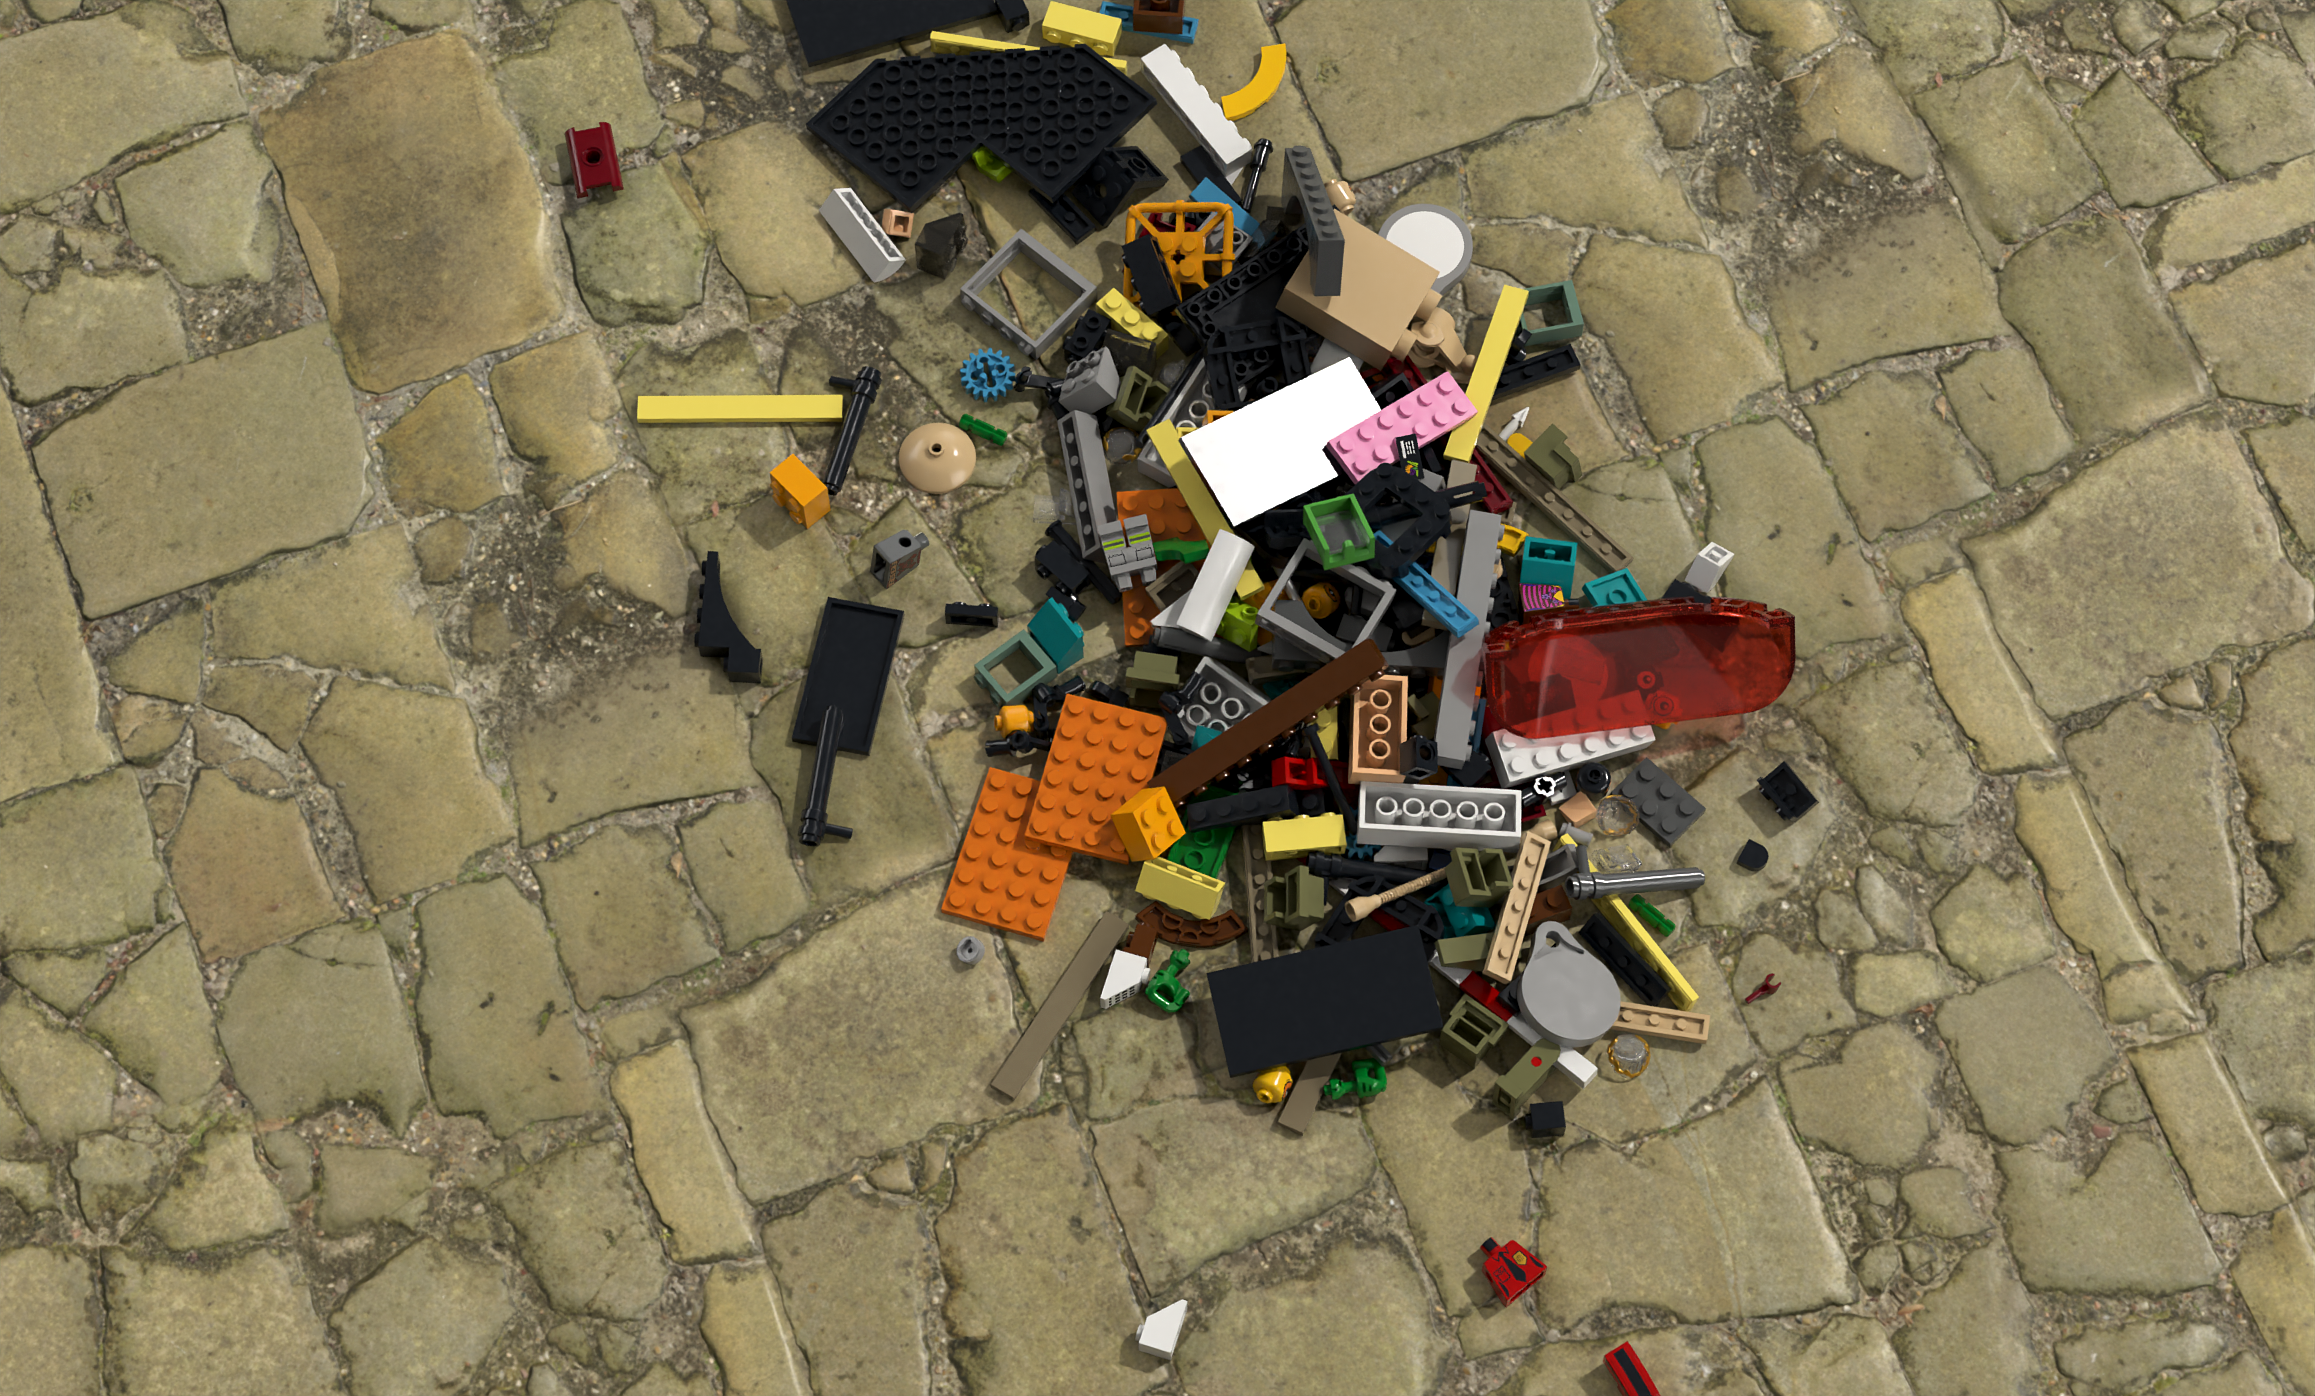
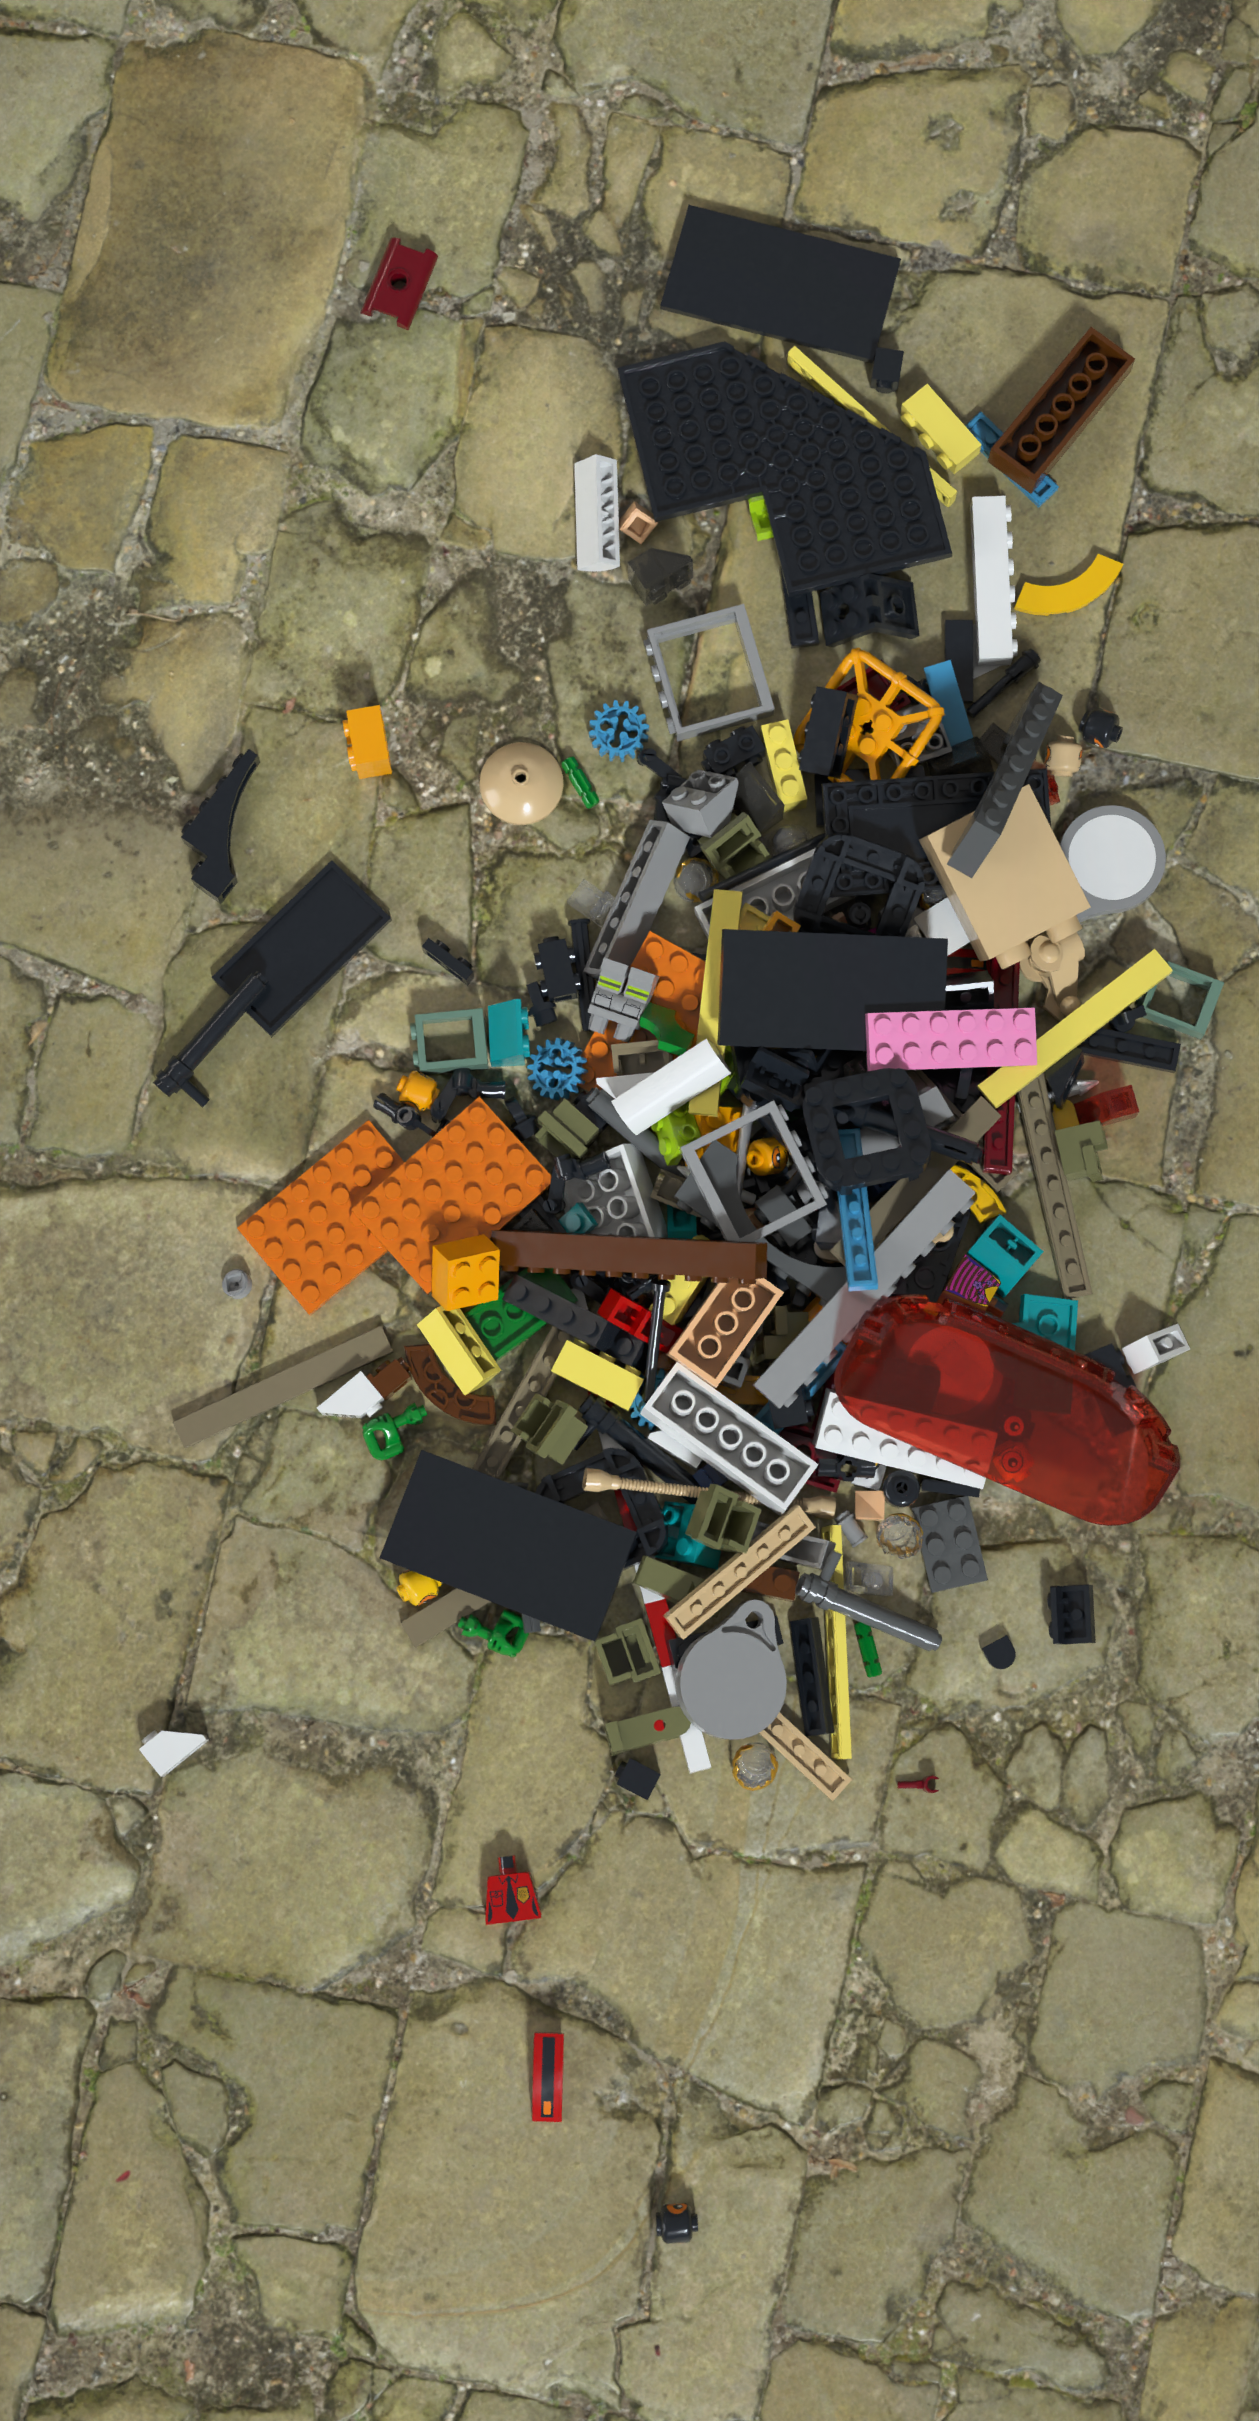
camera: 35 degrees right, 15 degrees up
(740, 408) = (374, 621): light yellow tile -> none
(862, 395) = (492, 679): black cylinder -> none
(897, 556) = (408, 865): dark grey torso -> none
(1116, 626) = (569, 1059): none -> dark azure gear
(1339, 531) = (808, 1116): bright green window -> none
(1350, 162) = (1100, 727): none -> black head
(1410, 455) = (935, 1076): black sticker -> none
(1418, 757) = (728, 1381): black brick -> none
(1499, 416) = (1063, 1075): none -> black slope
(1554, 409) = (1108, 1107): none -> clear red slope
(1630, 758) = (948, 1487): none -> black tile

